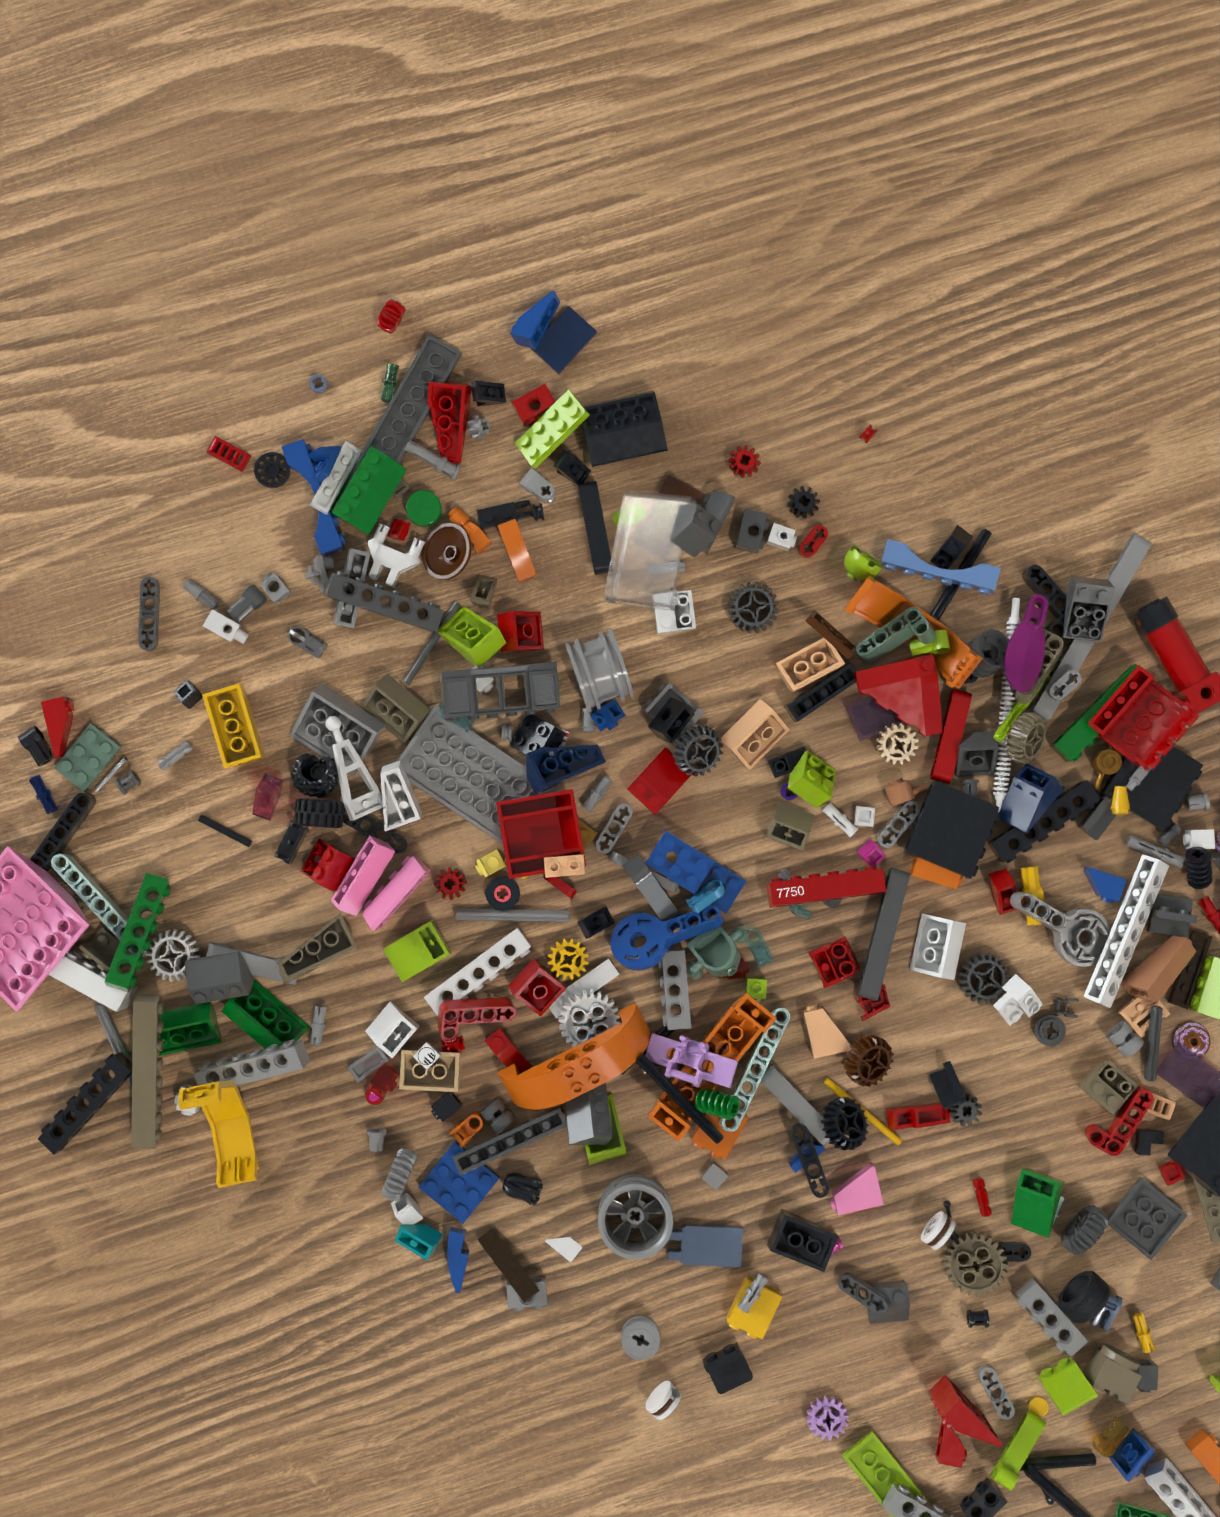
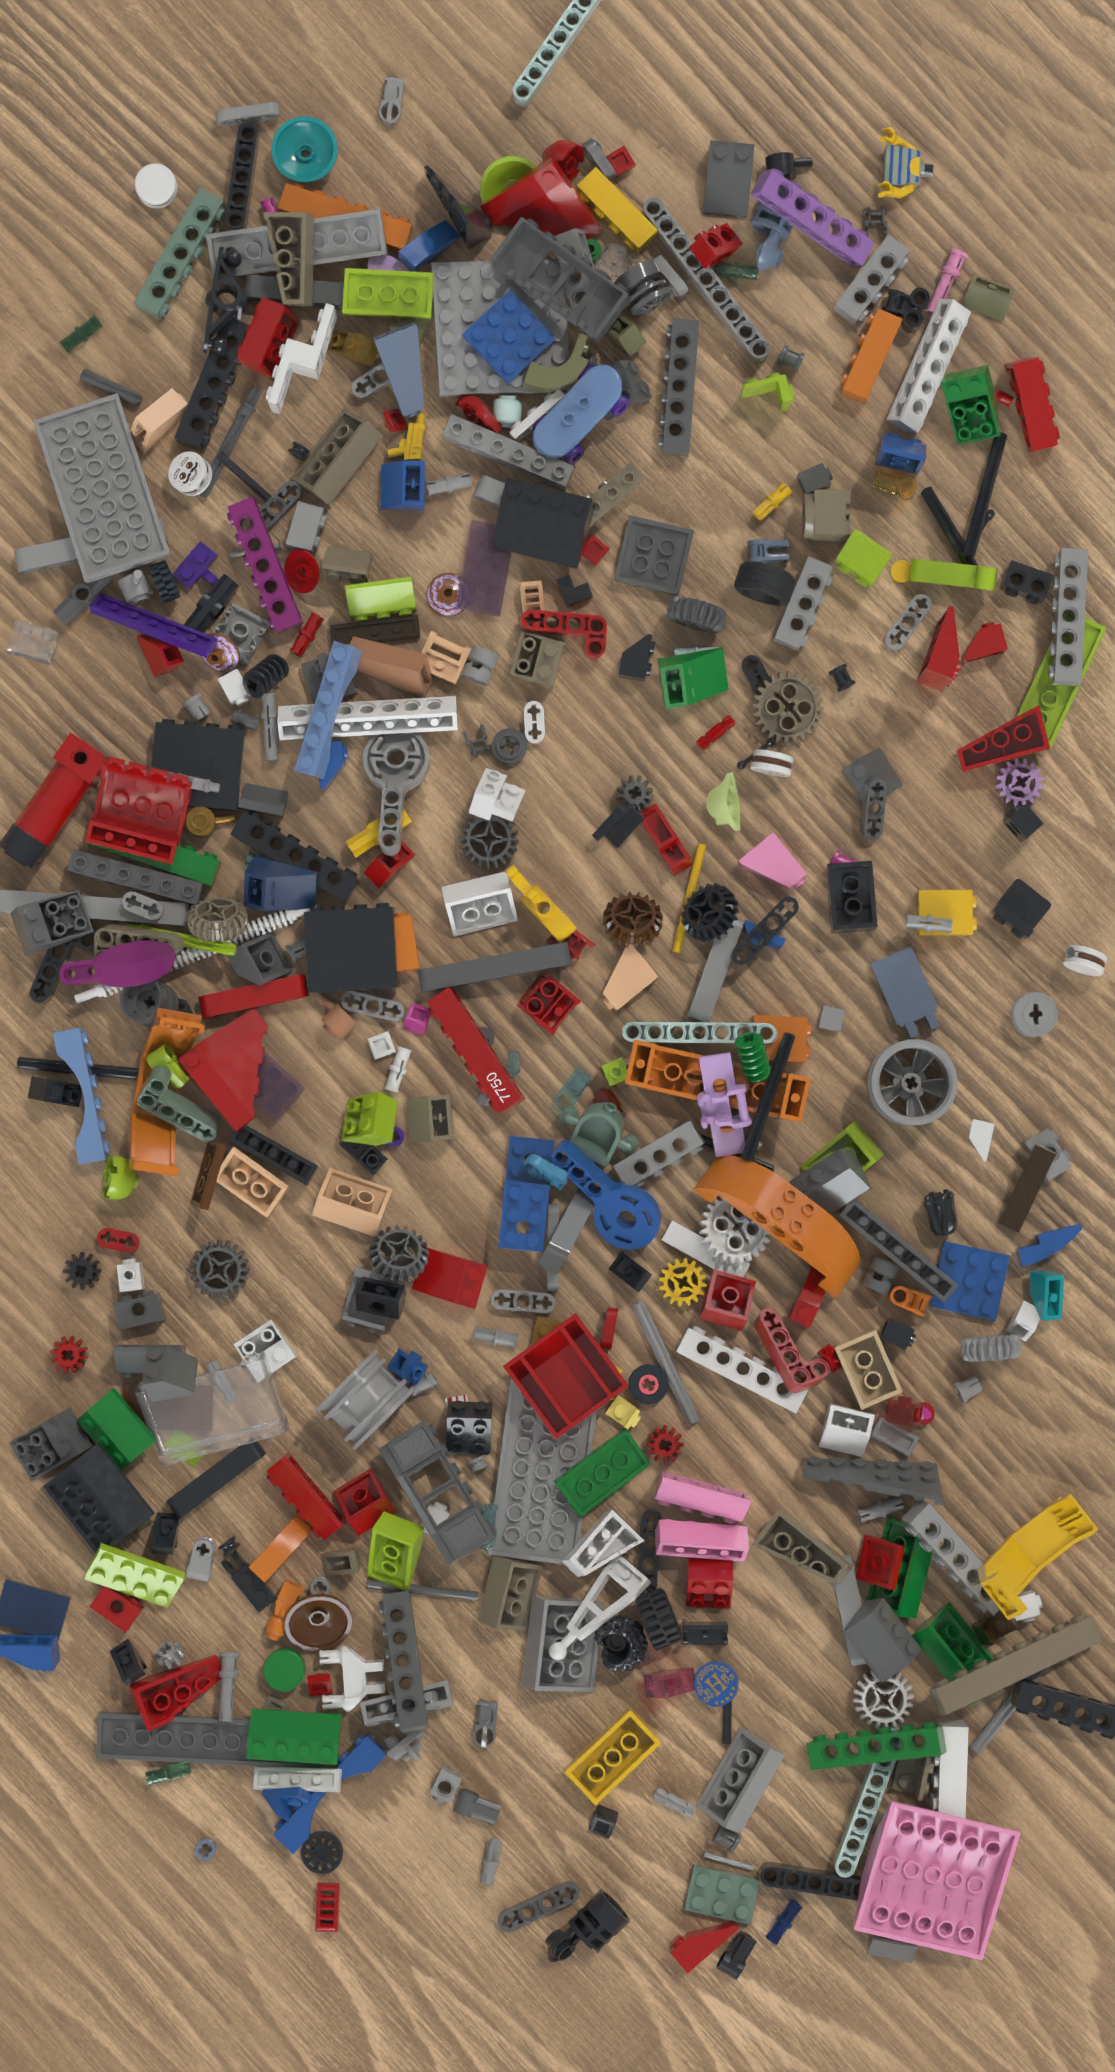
camera: 120 degrees left, 0 degrees up
(113, 648) = (593, 1925): none -> black cylinder
(166, 814) = (740, 1780): none -> light grey slope
(184, 1067) = (994, 1627): none -> dark brown slope
(217, 622) = (513, 1828): white torso -> none
(248, 832) = (716, 1683): none -> blue tile
(277, 1005) = (880, 1562): none -> red plate
(343, 1038) = (880, 1476): none -> dark grey wing
(391, 316) = (96, 1807): red gear -> none
(417, 951) = (752, 1444): lime slope -> none
(427, 1055) = (853, 1380): white tile -> none
(452, 824) = (602, 1472): none -> green tile
(474, 572) = (325, 1583): none -> light grey bush
(547, 589) = (306, 1496): none -> red slope
(553, 766) = (488, 1396): dark blue wedge -> none
(564, 865) = (586, 1335): light nougat brick -> none
(670, 469) = (117, 1428): none -> green slope
(683, 415) = (51, 1444): none -> dark grey slope
(796, 1406) = (1022, 822): none -> black brick
(865, 1429) = (1011, 740): none -> red wedge
(904, 740) = (296, 1053): tan gear -> none
(920, 992) = (535, 900): none -> yellow piece
(924, 1176) = (724, 803): none -> yellowish green hat
(1056, 1062) = (528, 722): none -> white beam
(1070, 1162) = (634, 660): none -> black slope
(1088, 690) = (135, 877): none -> dark grey brick
(1120, 801) = (237, 790): yellow cone -> none
(1153, 1043) = (470, 634): dark grey axle -> none
(1174, 924) = (317, 741): none -> medium blue arch

